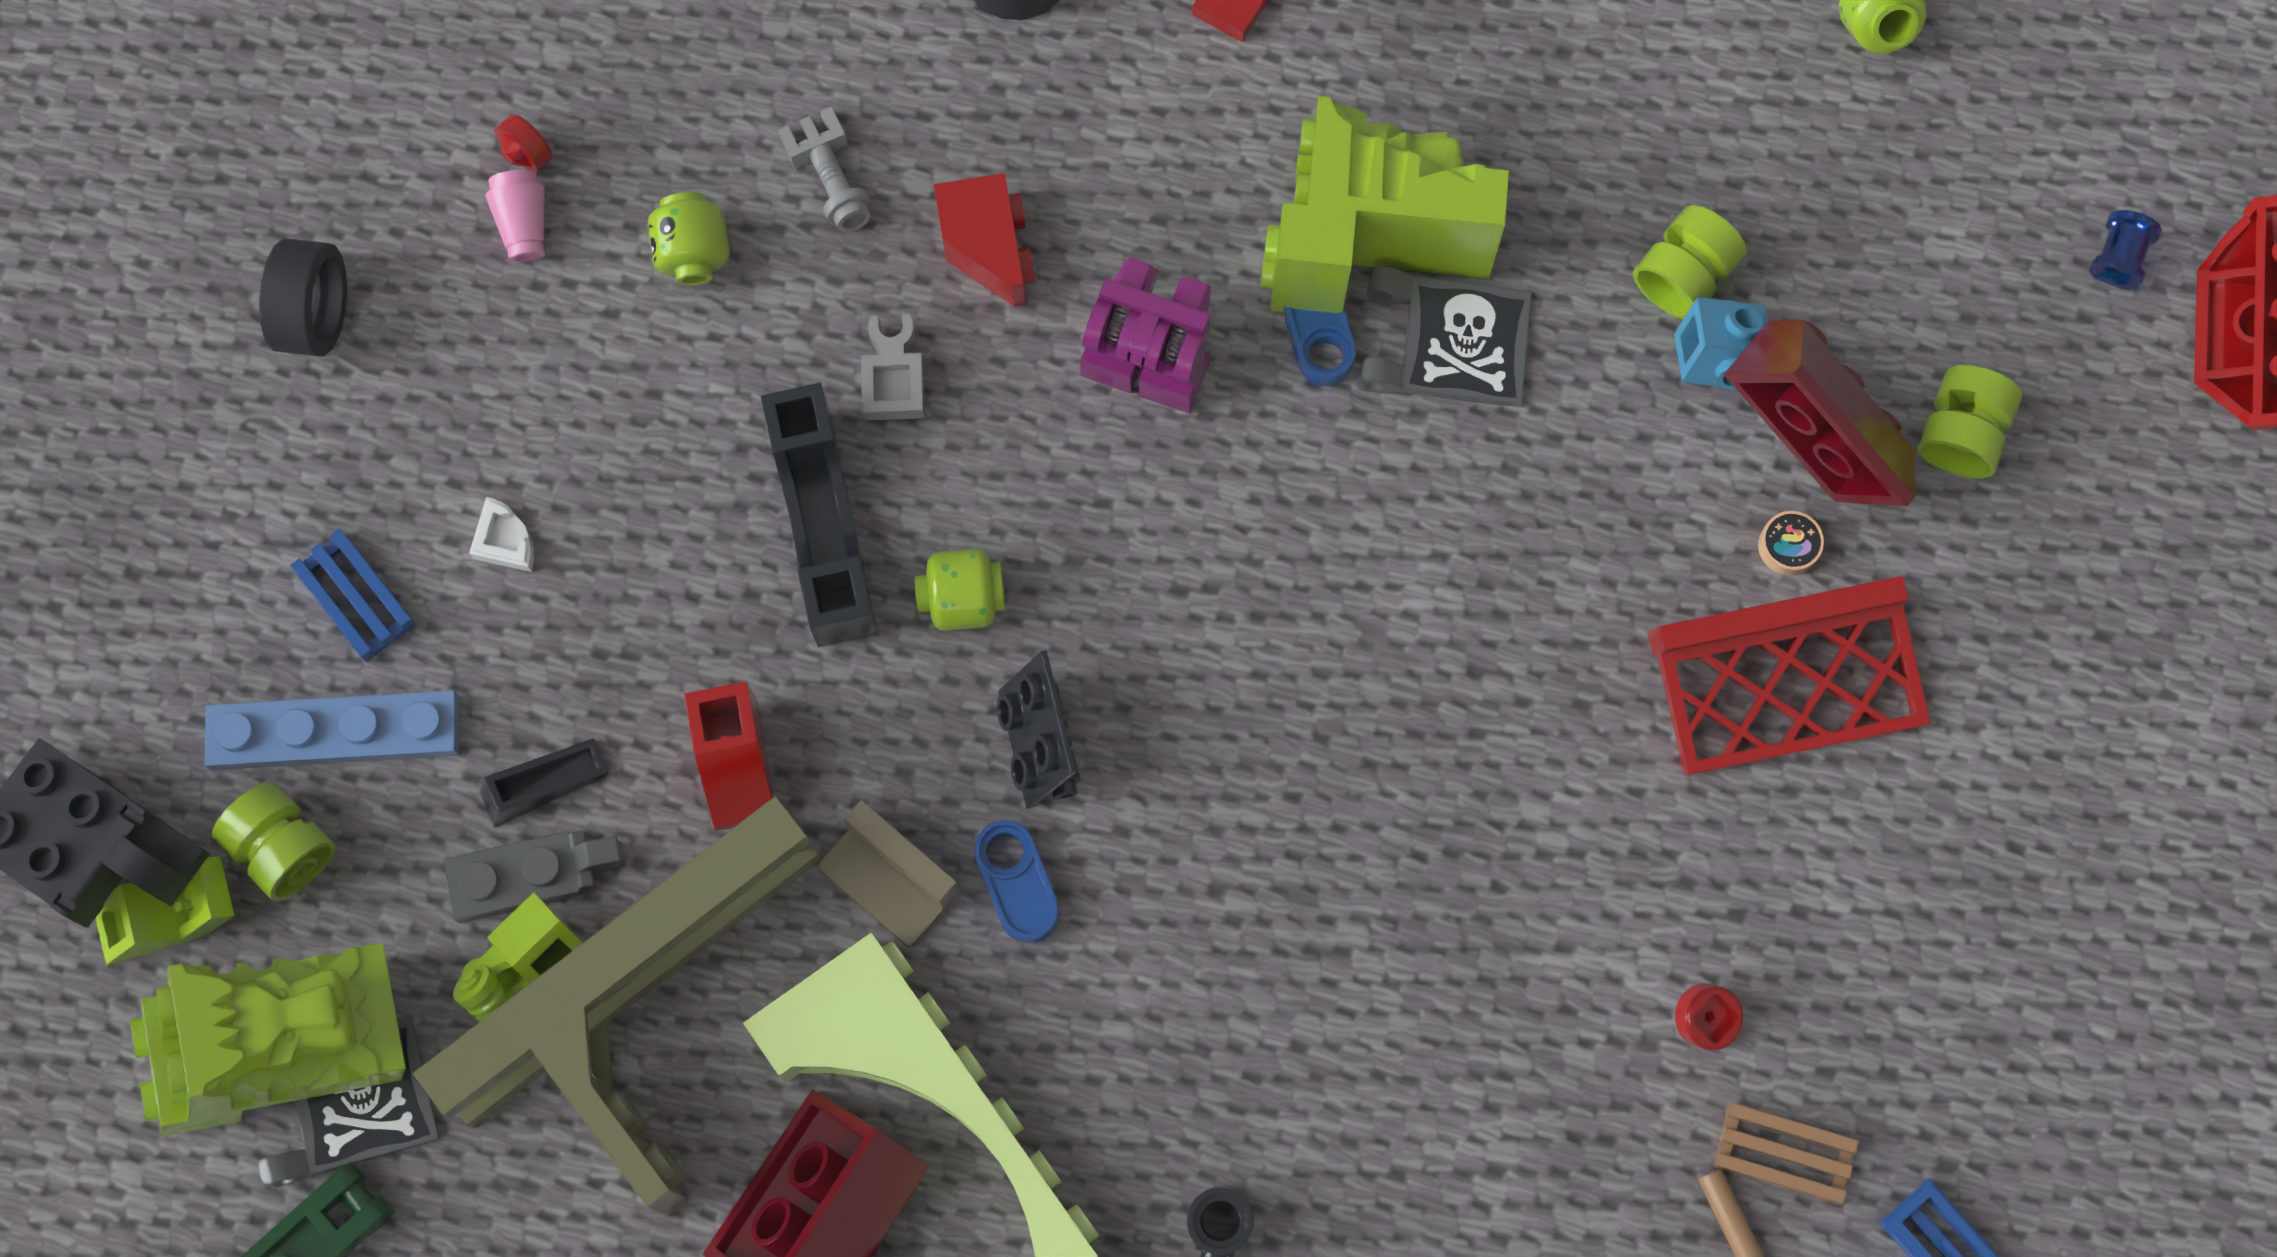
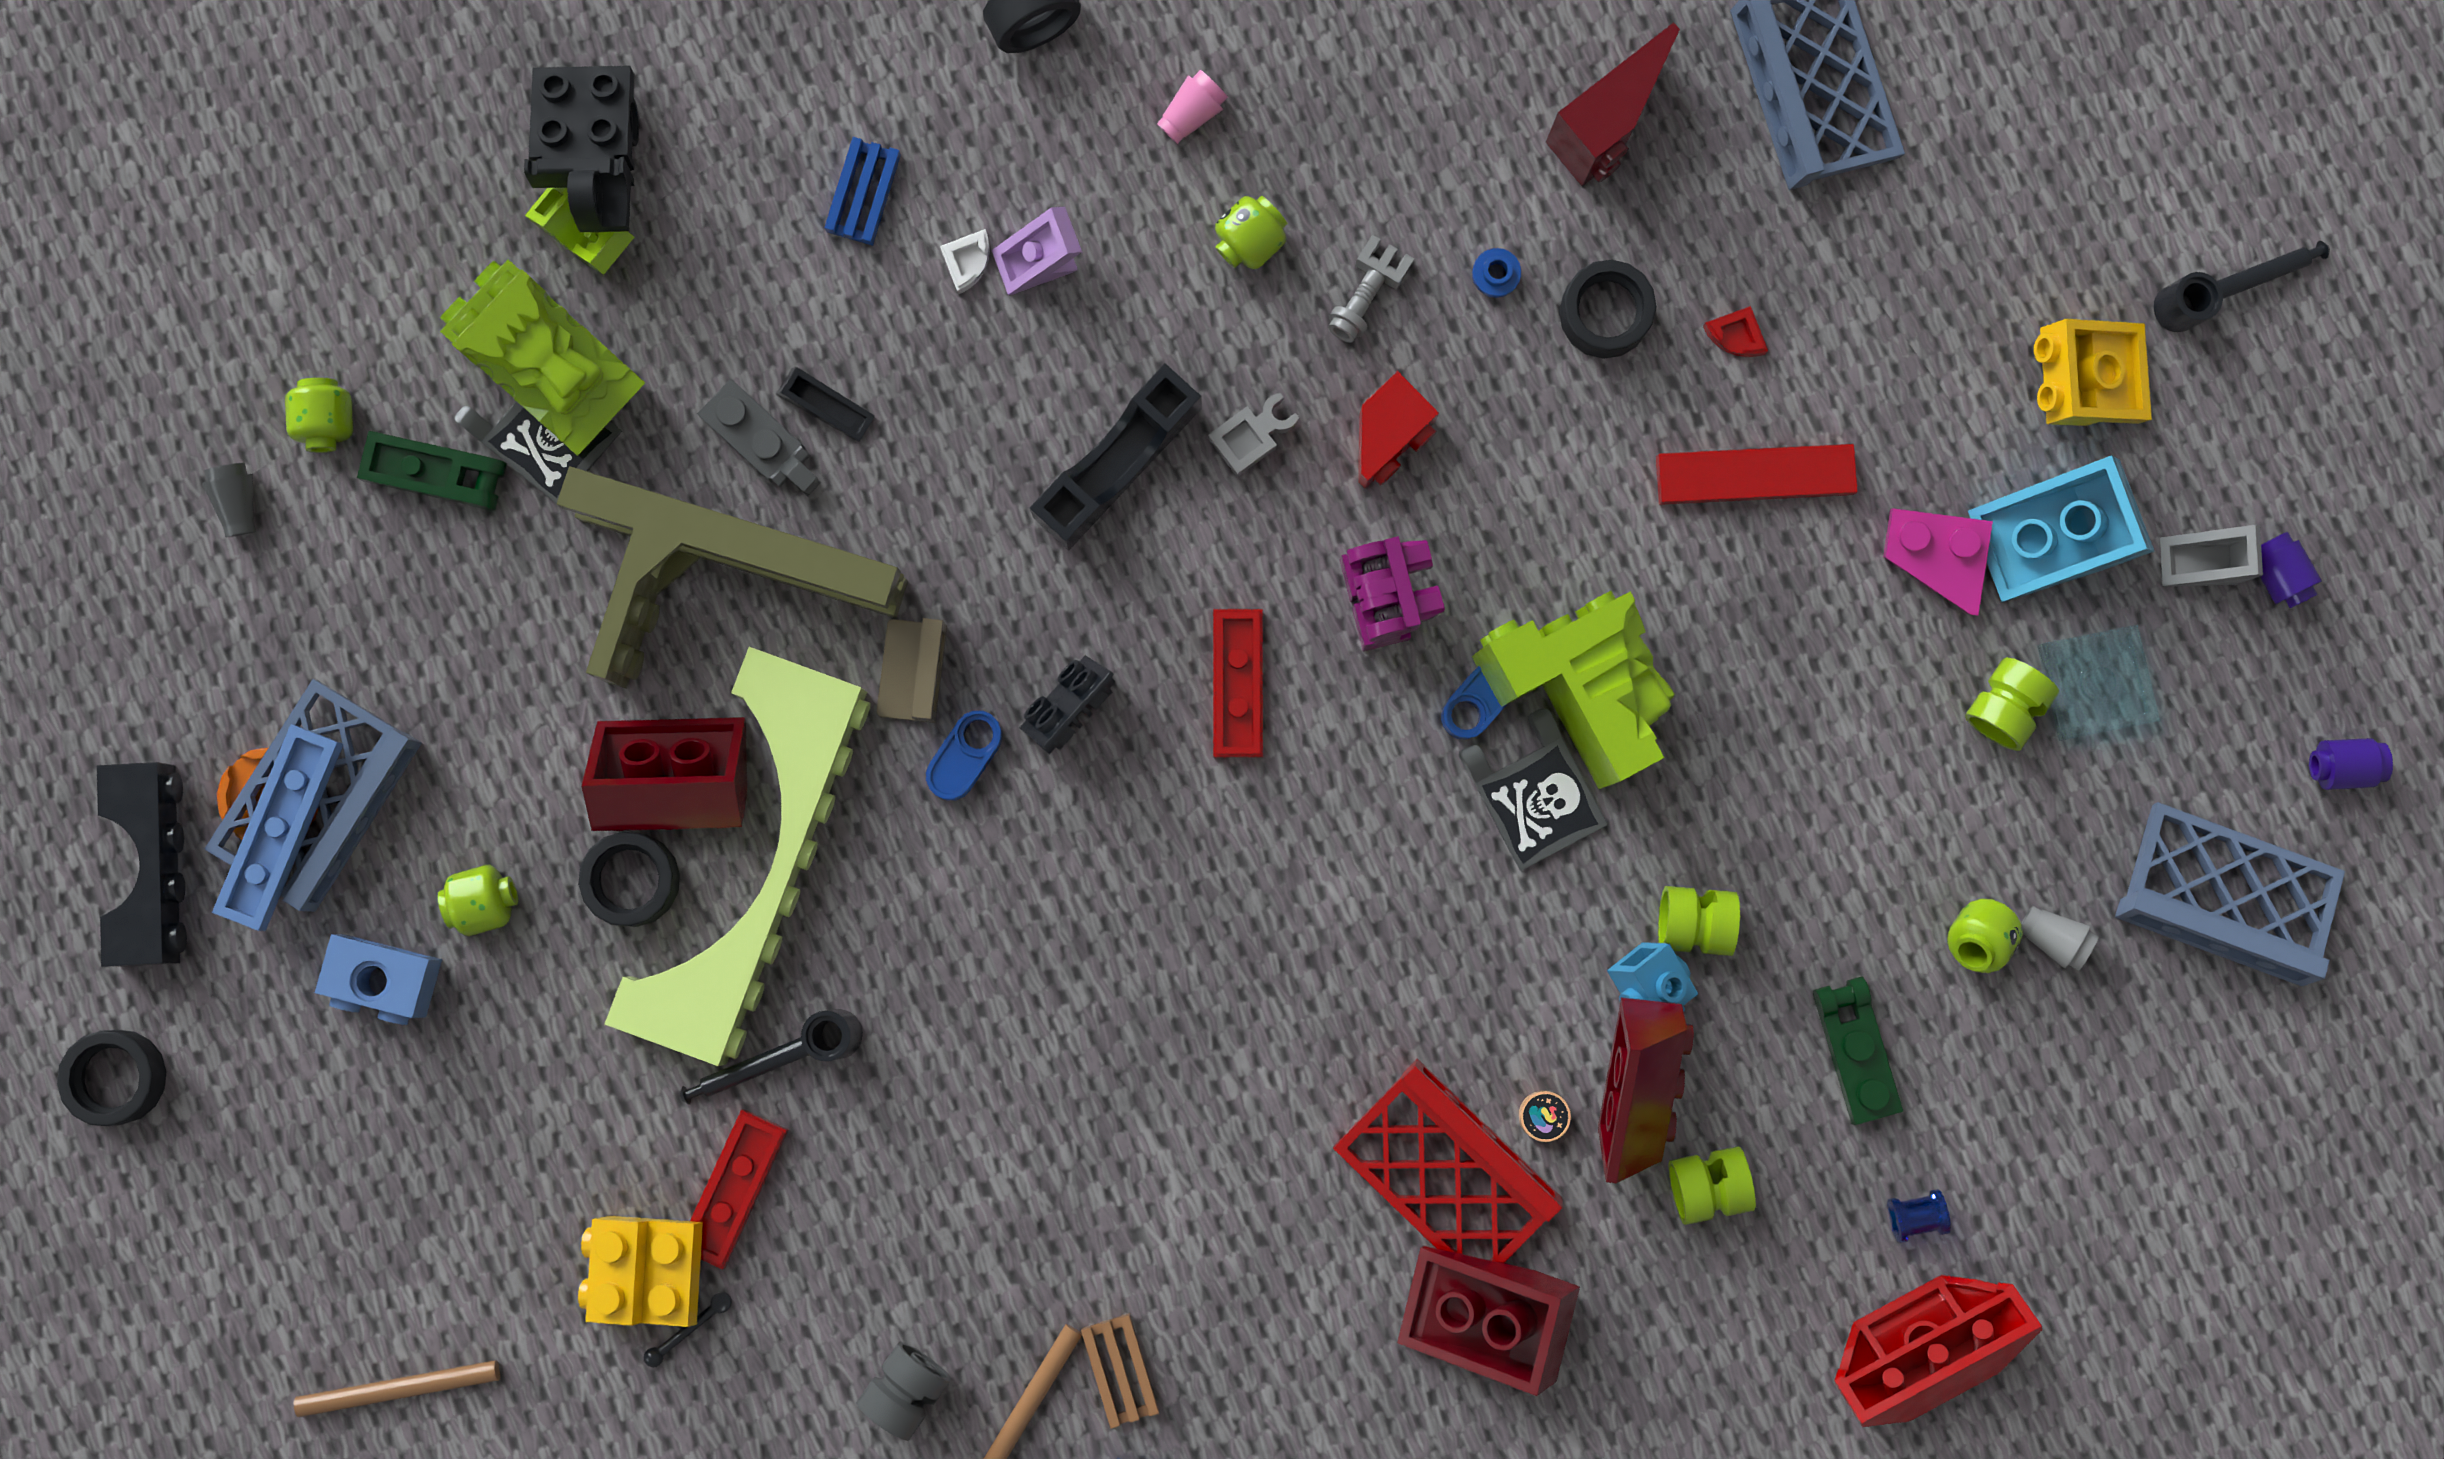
camera: 50 degrees right, 10 degrees up
(267, 833) = (667, 263): lime wheel -> none
(331, 730) = (766, 245): medium blue plate -> none
(521, 951) = (705, 476): lime brick -> none
(522, 143) = (1240, 73): red tile -> none
(550, 455) = (1038, 252): none -> lavender slope
(729, 752) = (918, 514): red slope -> none
(907, 53) = (1496, 287): none -> blue plate
(961, 589) = (1132, 585): lime head -> none
(1137, 555) = (1237, 683): none -> red tile
(1709, 1016) = (1176, 1264): red tile -> none
(1919, 204) = (1858, 1052): none -> dark green plate
(1968, 729) = (1489, 1318): none -> dark red slope

